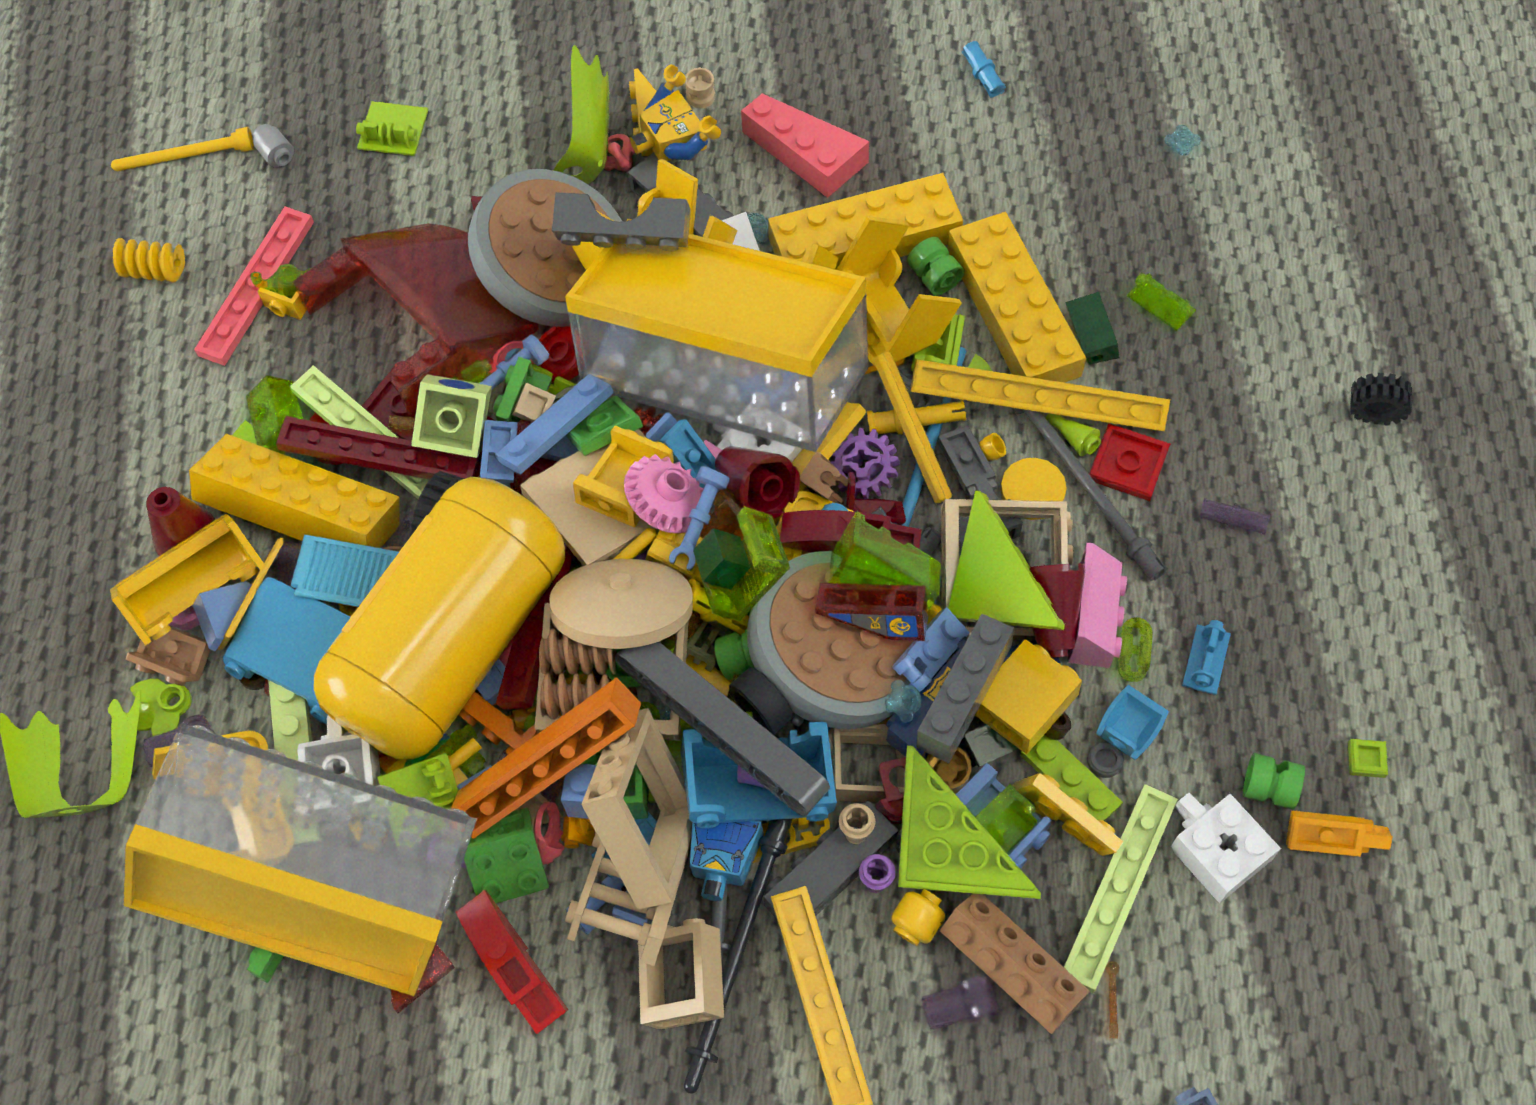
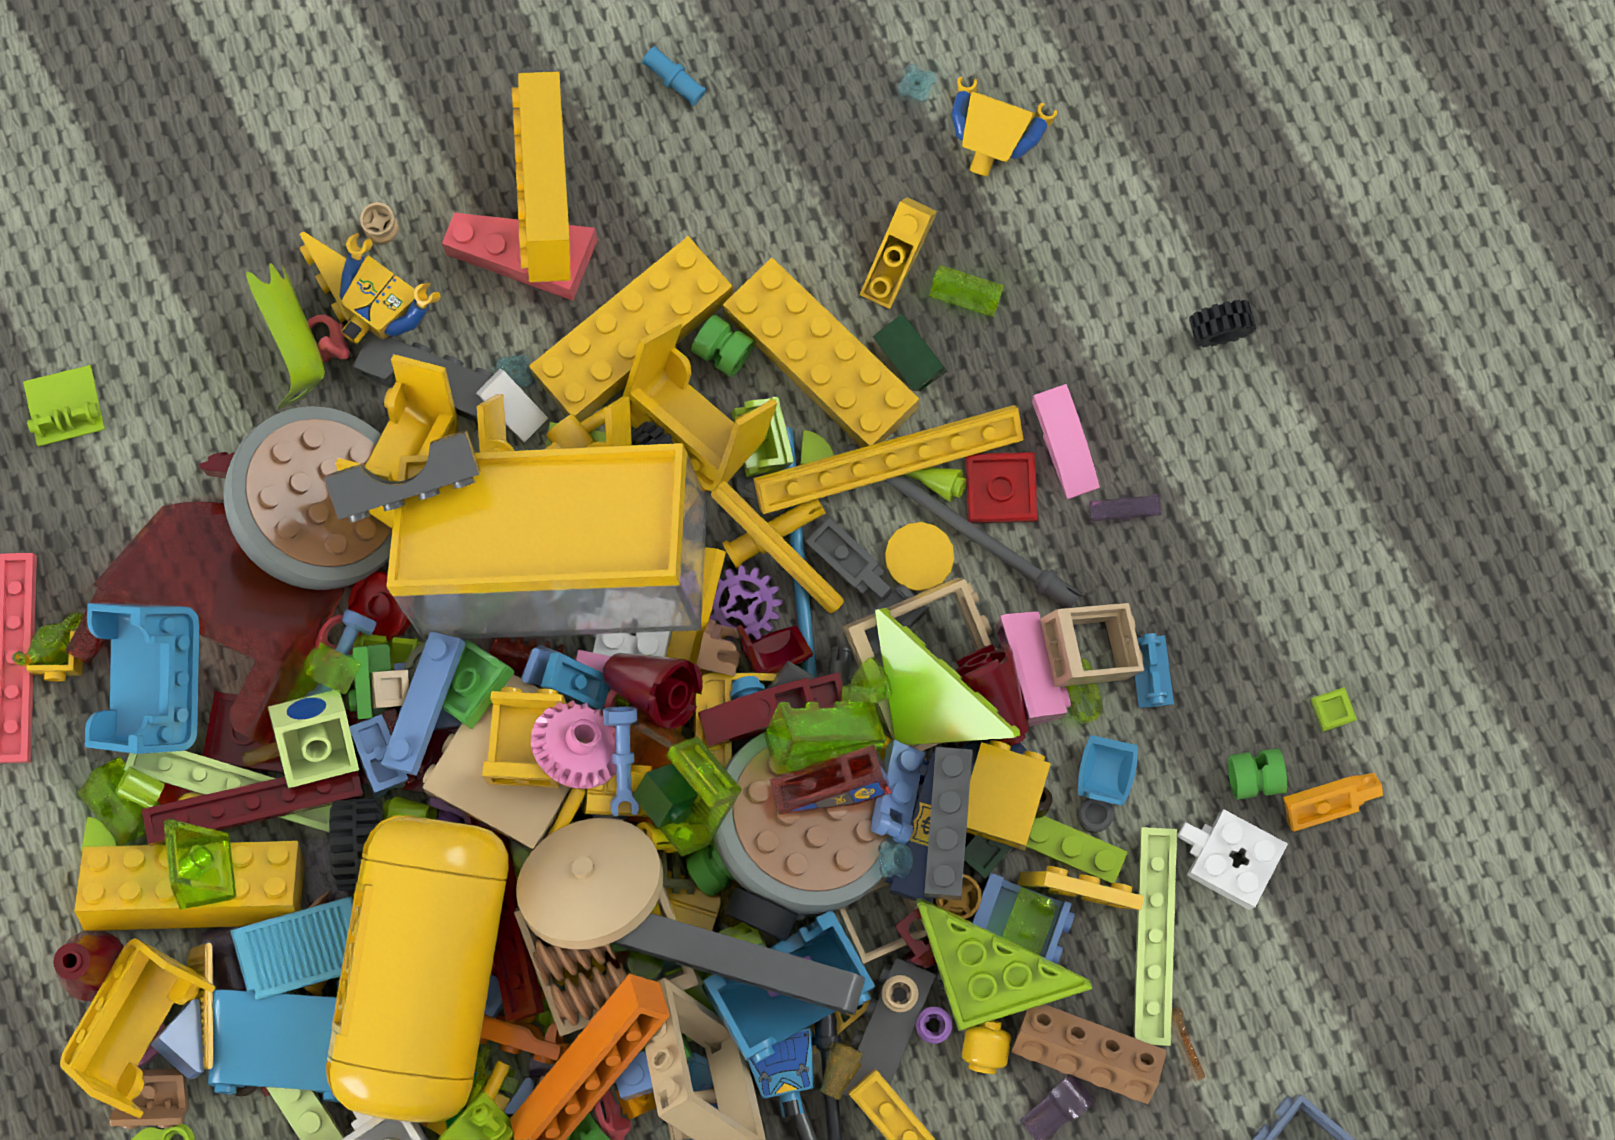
camera: 25 degrees left, 15 degrees up
(294, 401) = (139, 787): none -> lime piece
(304, 470) = (198, 864): none -> clear neon green slope
(350, 316) = (149, 678): none -> dark azure windscreen
(494, 366) = (331, 668): none -> clear neon green bracket
(774, 871) = (840, 1069): none -> clear yellow cone
(842, 86) = (541, 177): none -> yellow brick
(945, 548) = (868, 684): none -> clear neon green tile
(993, 447) = (863, 529): yellow hinge -> none
(1115, 250) = (898, 251): none -> yellow slope
(1131, 604) = (1064, 650): none -> tan window
(1202, 442) = (1066, 441): none -> bright pink slope
(1238, 189) = (995, 127): none -> yellow torso

